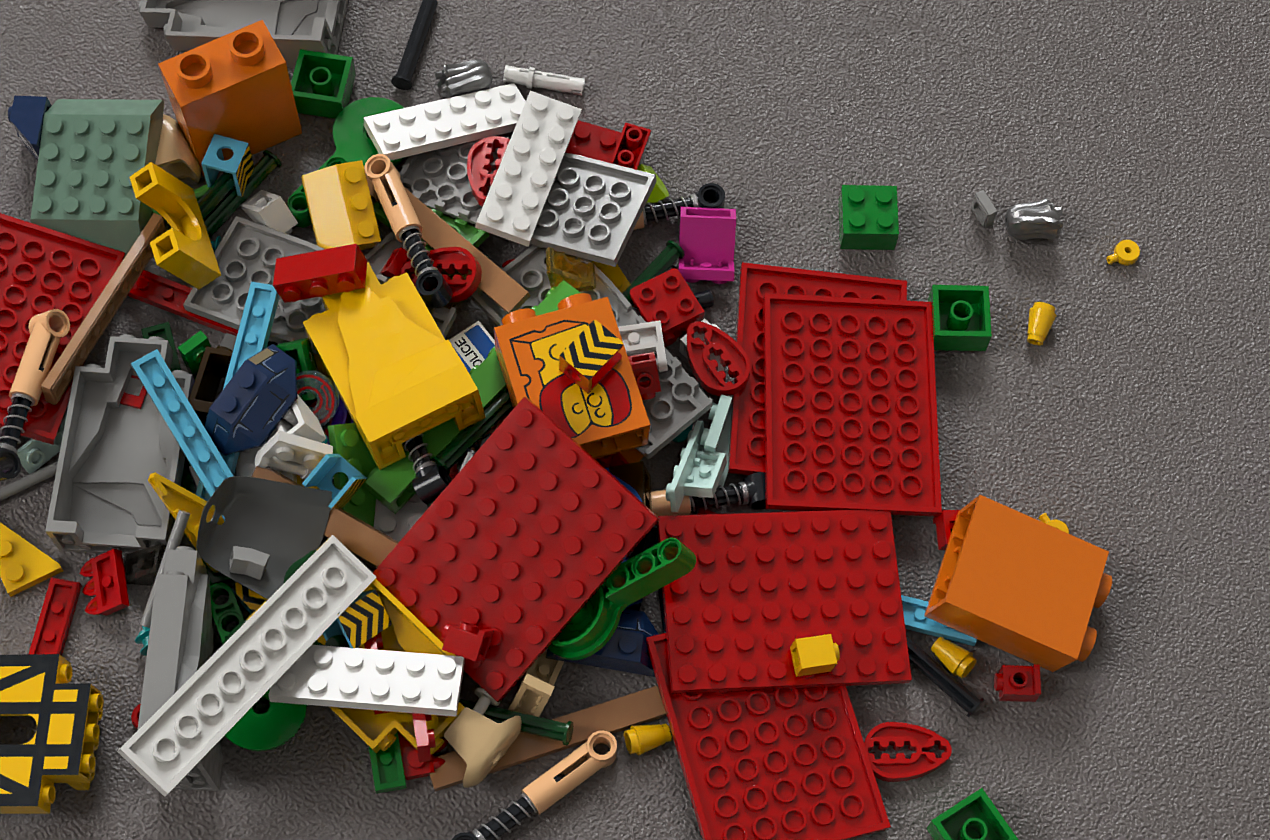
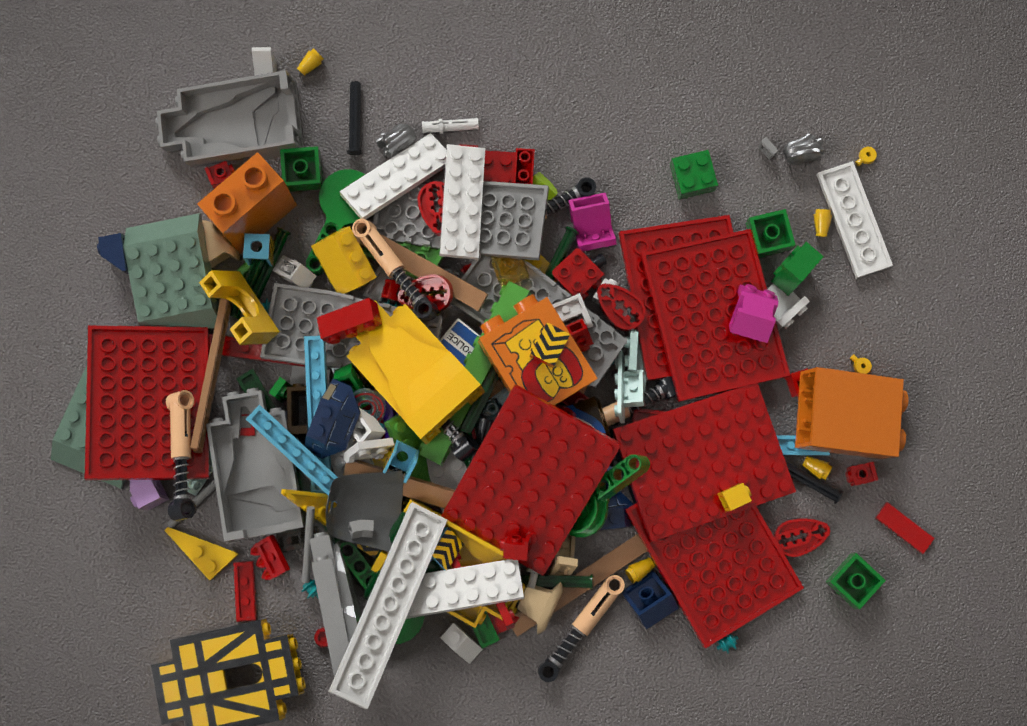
camera: 15 degrees left, 15 degrees up
(346, 775) = (461, 643): none -> white slope
(650, 785) = (650, 600): none -> dark blue slope
(907, 409) = (754, 313): none -> dark pink piece
(959, 418) = (787, 307): none -> white bracket
(986, 369) = (796, 268): none -> green brick
(1067, 780) = (904, 528): none -> red tile
(1088, 332) = (854, 220): none -> white plate

